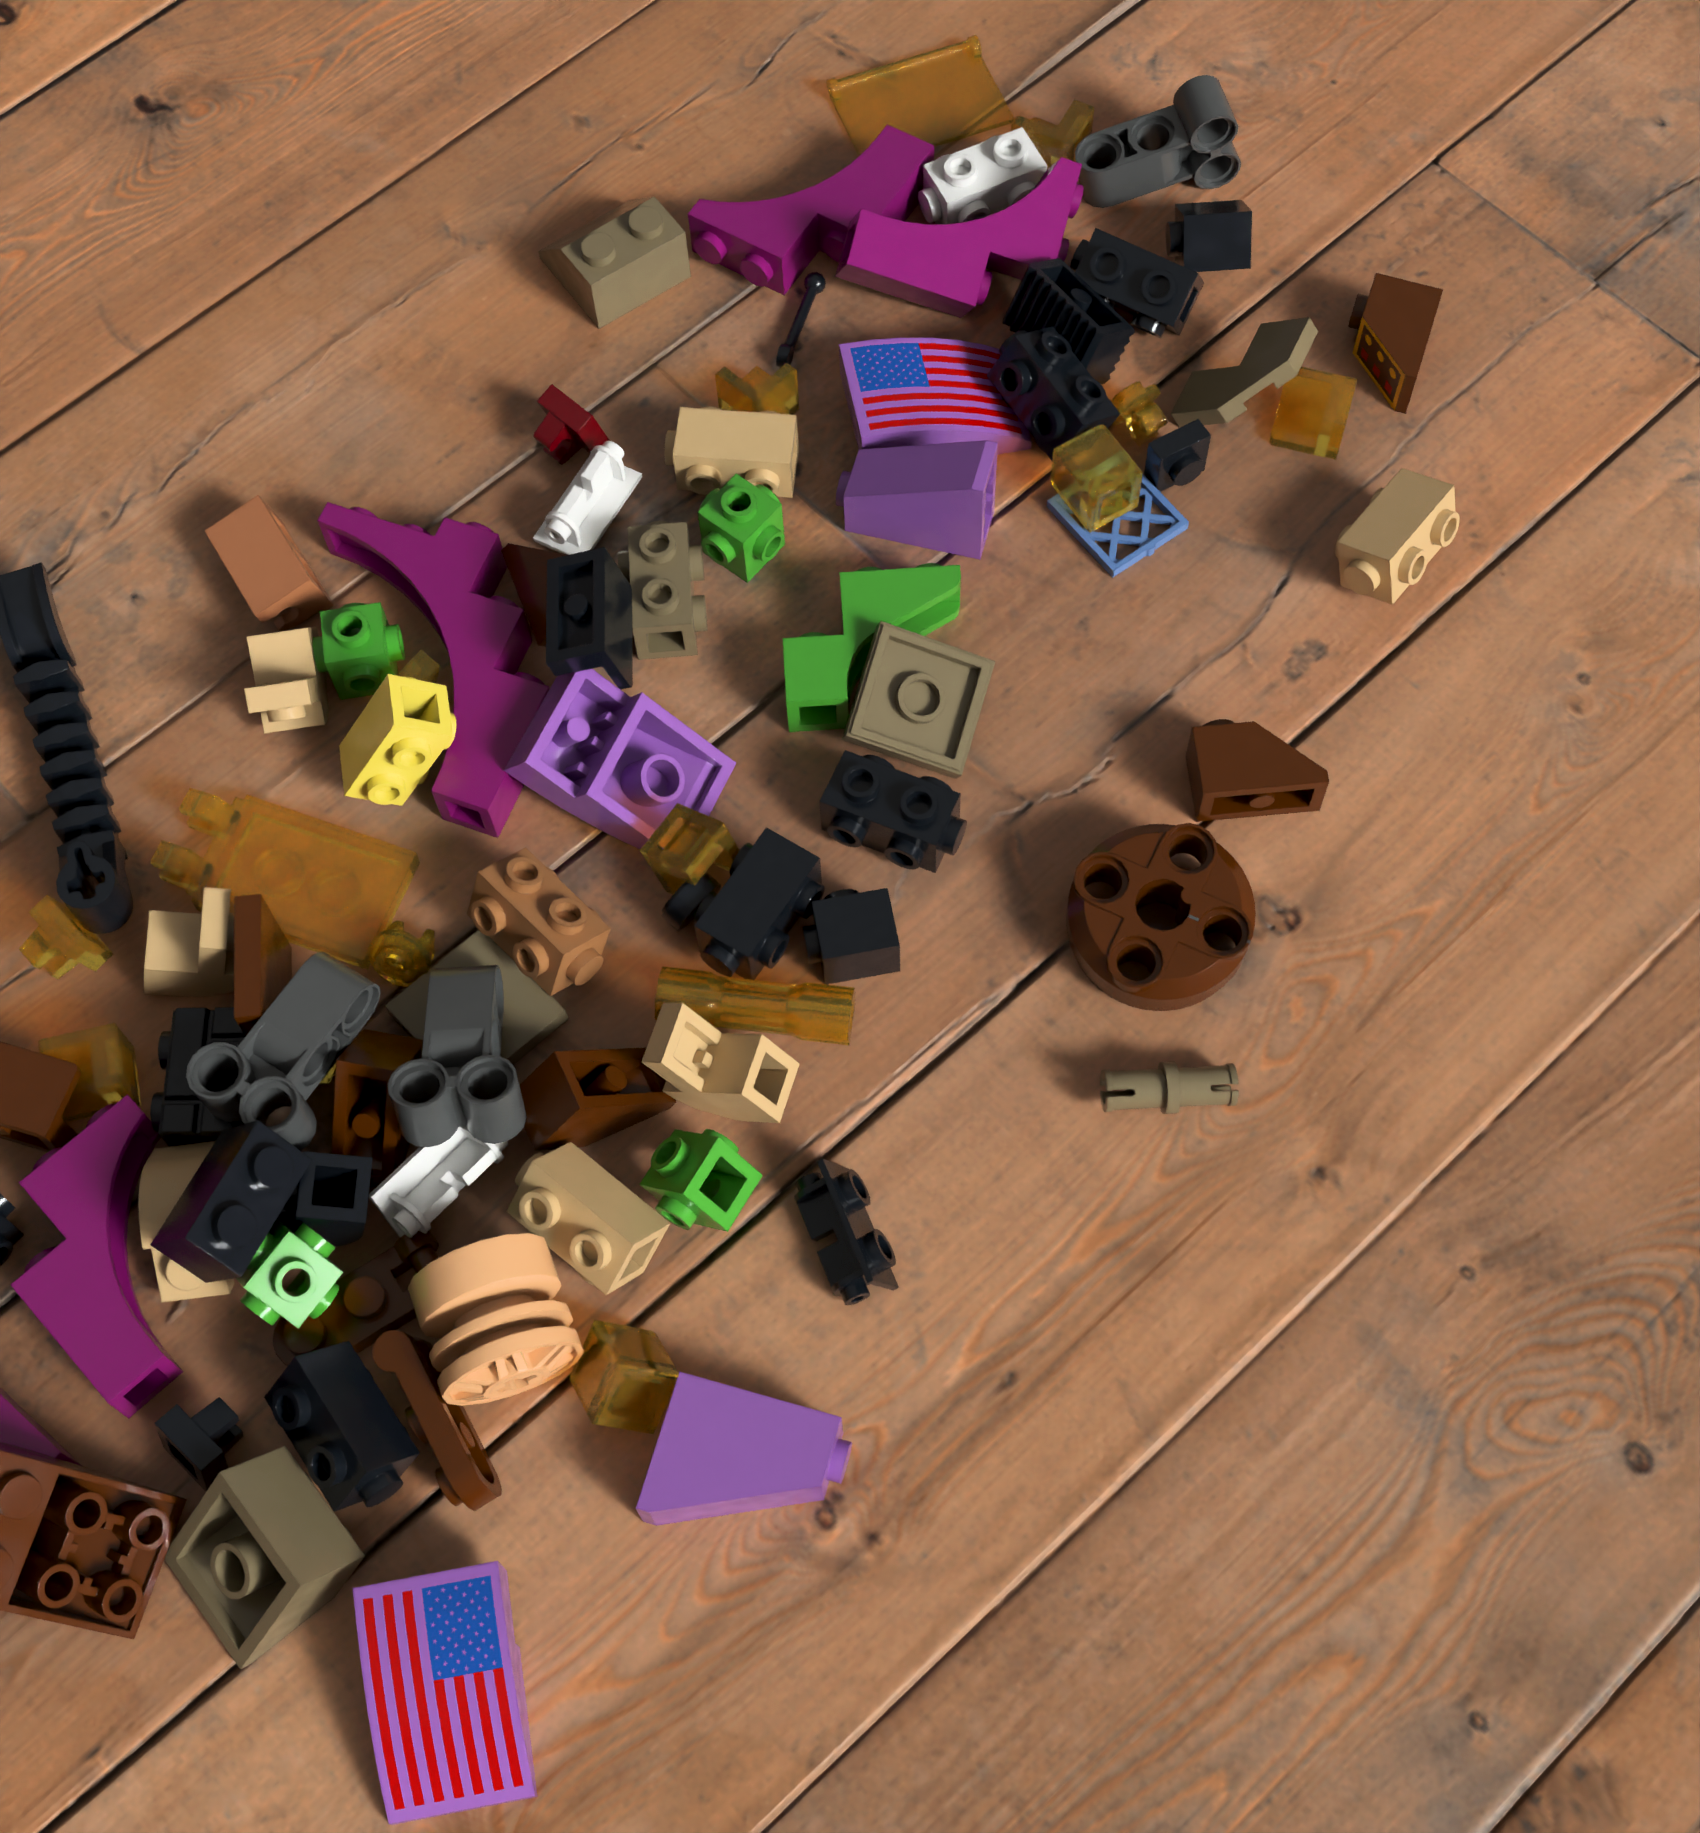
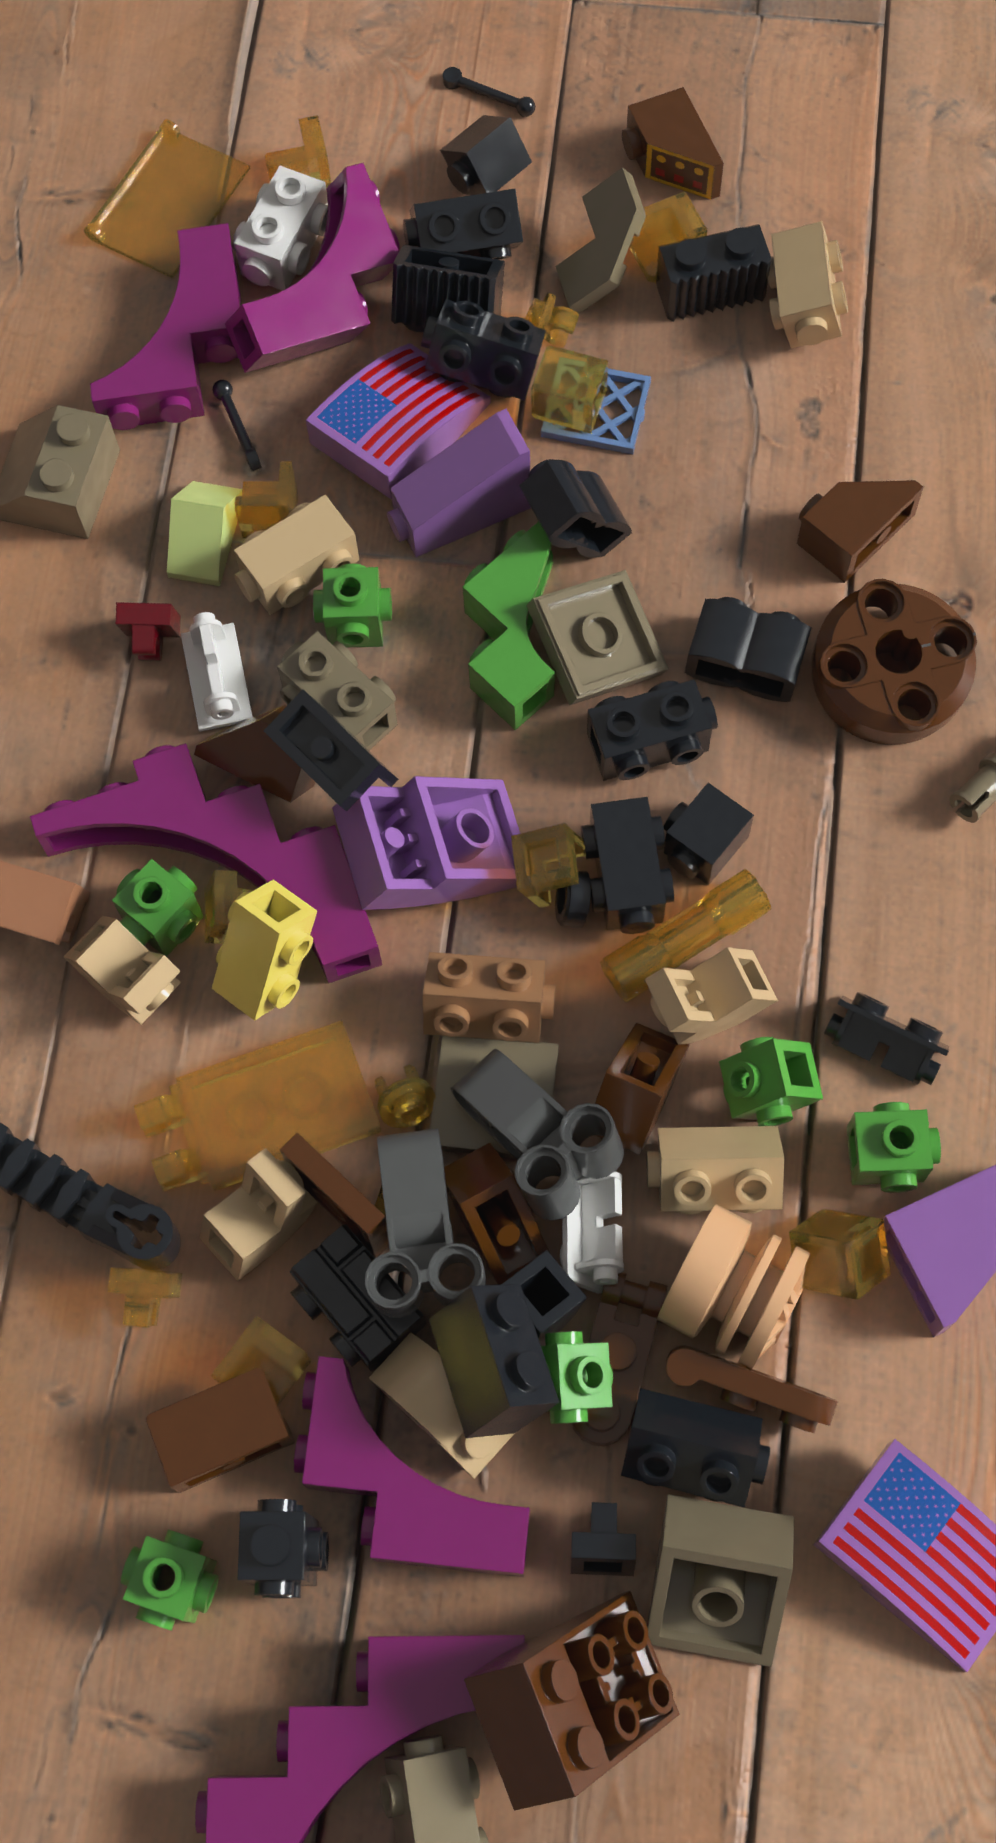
camera: 40 degrees left, 5 degrees up
(683, 377) = (201, 532): none -> yellowish green slope
(743, 1301) = (892, 1147): none -> bright green brick
(996, 577) = (574, 508): none -> black brick
(1043, 808) = (748, 649): none -> black brick
(1163, 147) = (406, 90): dark grey piece -> none
(1177, 456) = (609, 332): black plate -> none
(1258, 160) = (453, 79): none -> black hinge
(1322, 466) = (713, 272): none -> black brick

